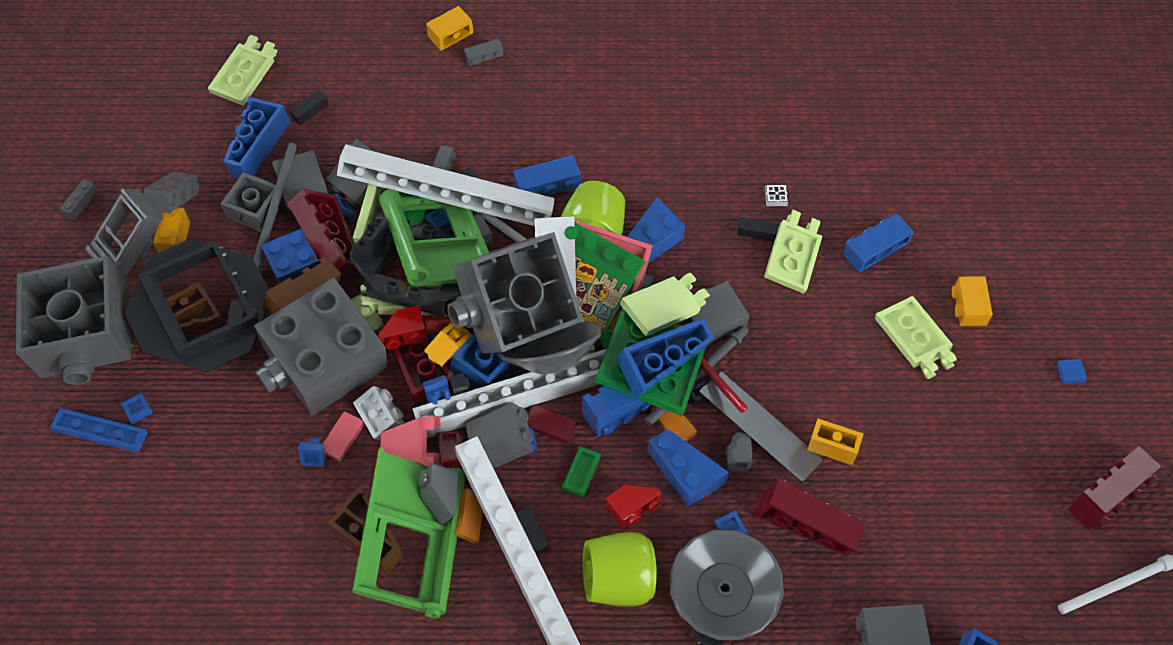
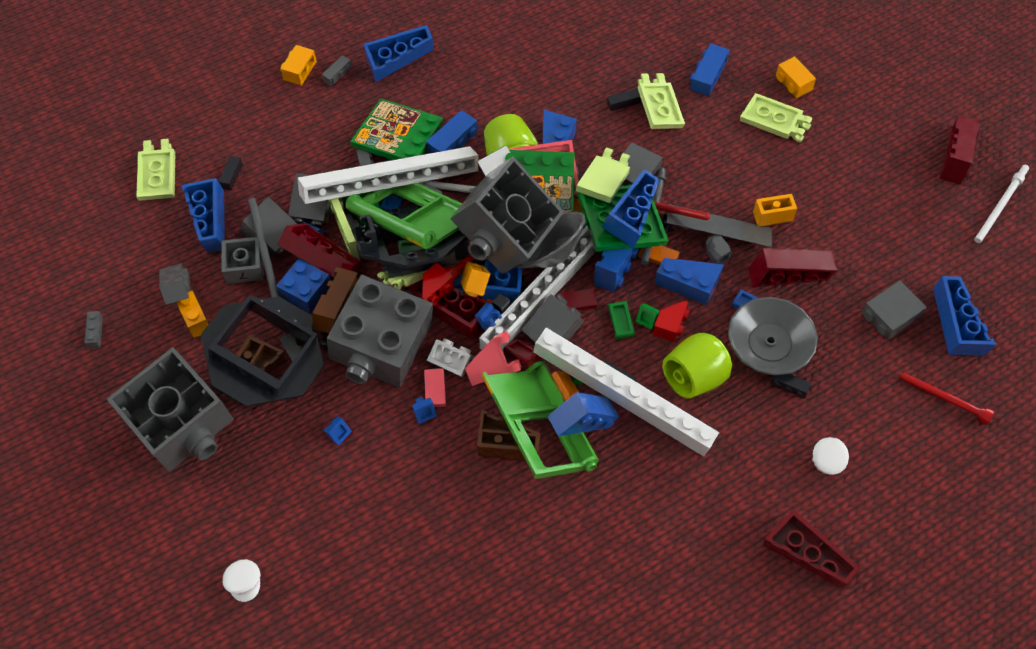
camera: 30 degrees left, 0 degrees up
(26, 526) = (242, 580): none -> white piece
(99, 430) = (243, 484): blue tile -> none
(136, 408) = (262, 453): blue tile -> none
(139, 240) = (179, 333): dark grey piece -> none
(217, 427) = (337, 430): none -> blue tile
(439, 491) = (539, 383): dark grey slope -> none
(458, 553) = (583, 414): none -> blue wedge
(495, 144) = (396, 131): none -> plate
(554, 60) = (397, 51): none -> blue wedge
(609, 481) = (647, 316): none -> green tile
(776, 195) = (619, 71): tile -> none
(1071, 371) = (884, 91): blue tile -> none

